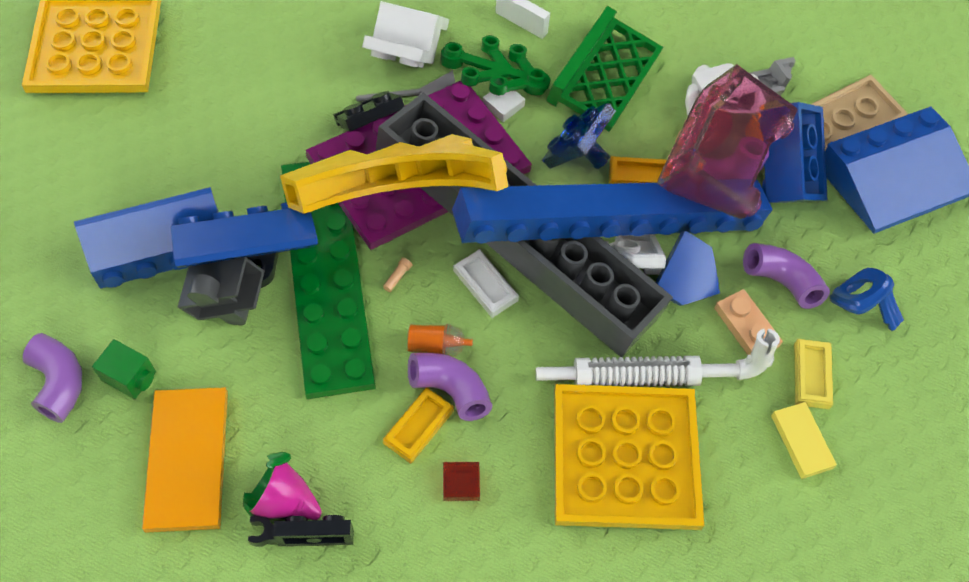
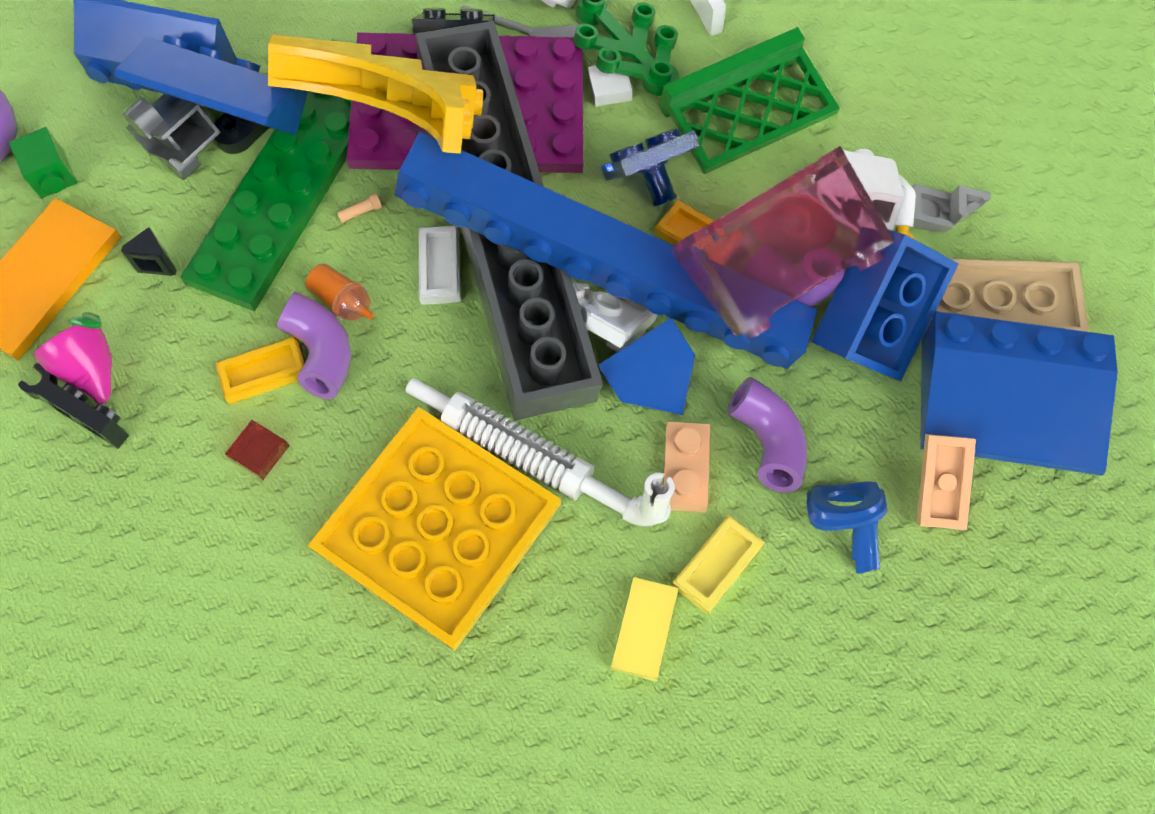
camera: 40 degrees right, 5 degrees up
(271, 390) = (148, 254): none -> black slope
(905, 244) = (946, 481): none -> light nougat plate

